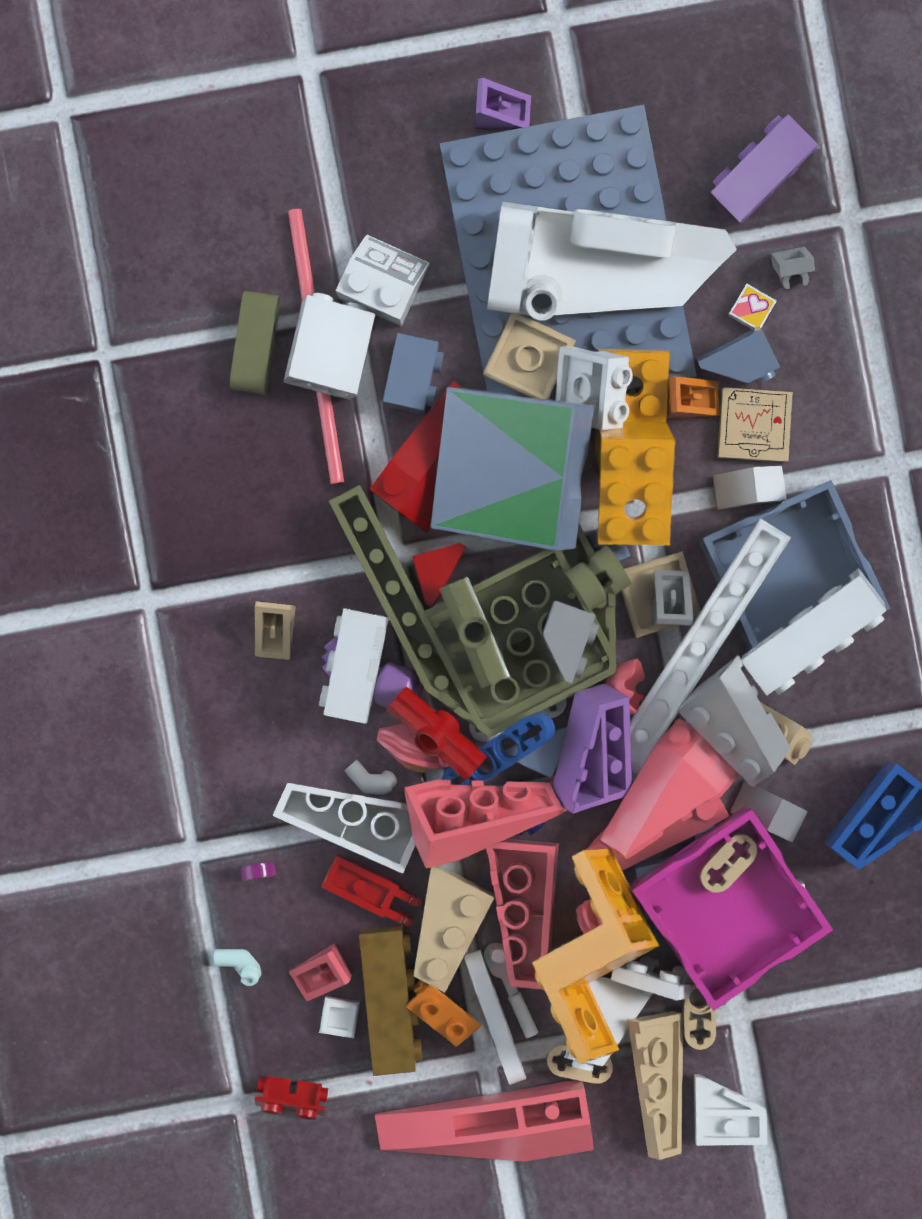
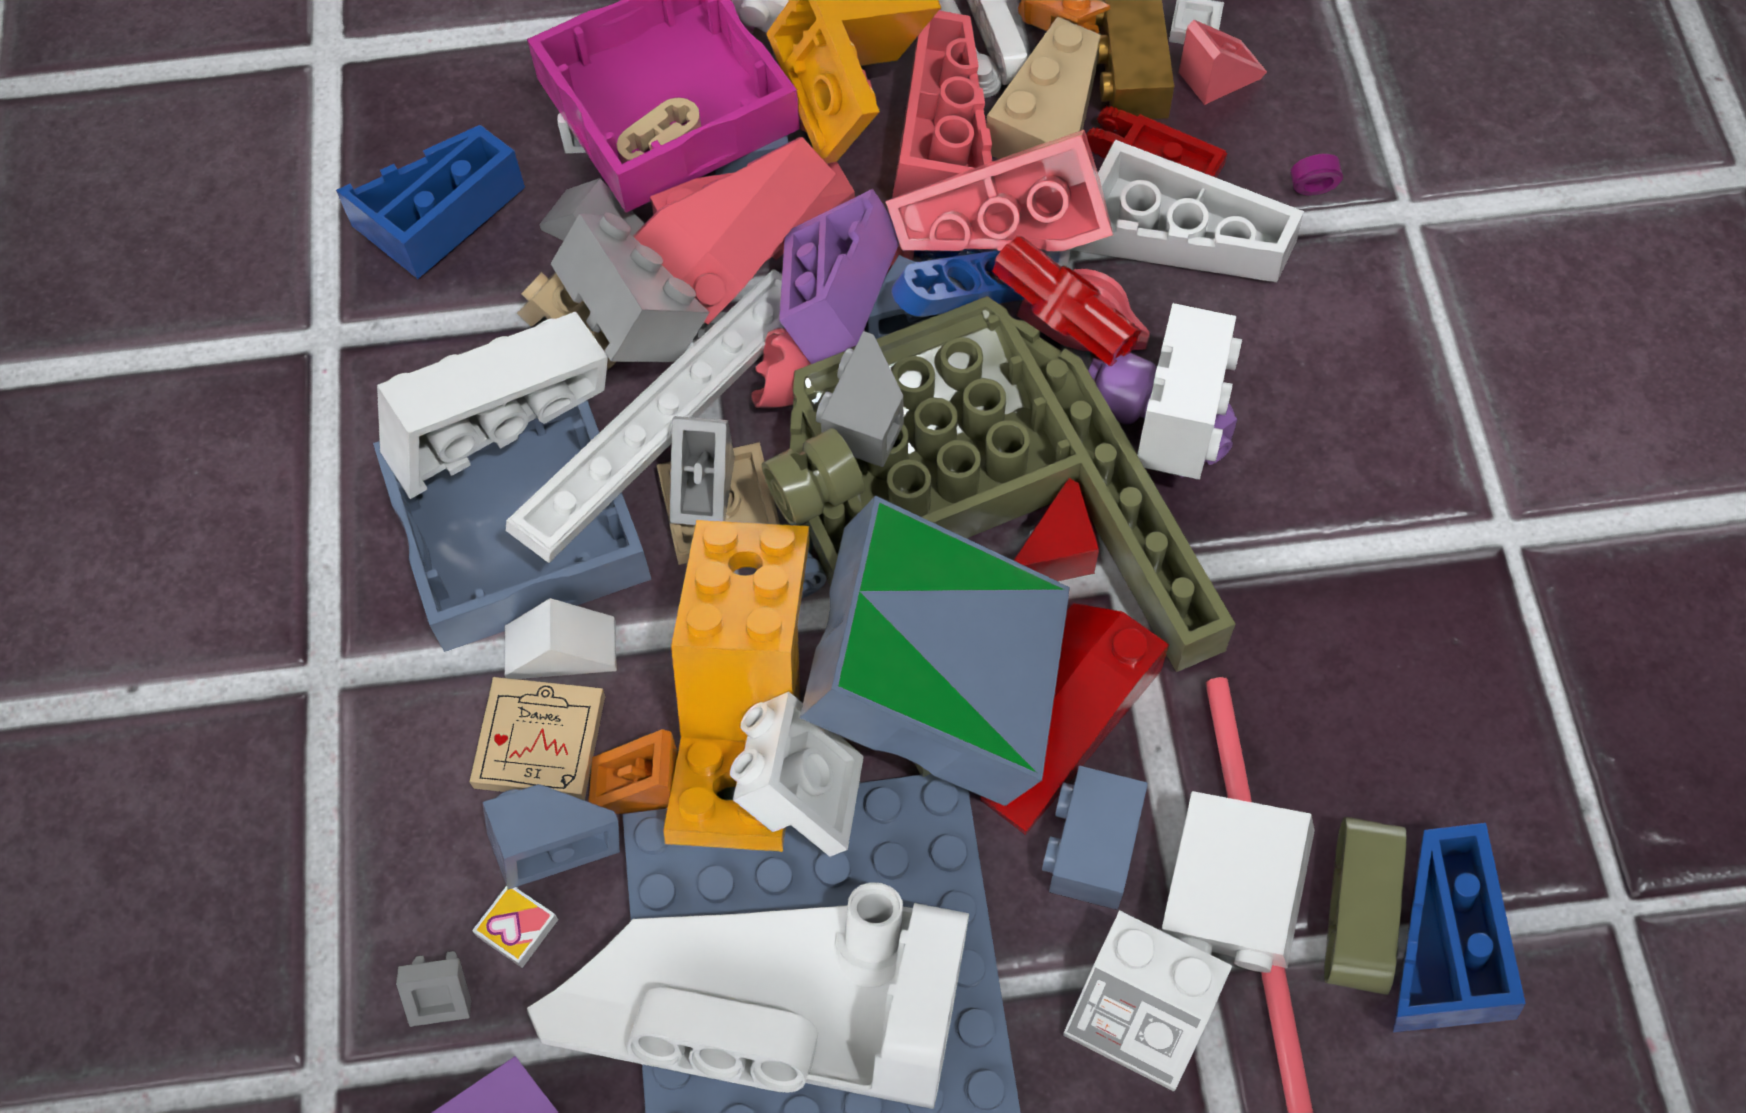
camera: 175 degrees left, 25 degrees down
(205, 318) = (1458, 937): none -> blue wedge
(242, 962) = (1333, 83): light aqua arm -> none
(273, 630) = (1309, 480): tan slope -> none
(371, 783) = (1160, 276): light grey arm -> none
(465, 609) = (1015, 440): olive piece -> none
(527, 357) = (902, 842): tan tile -> none

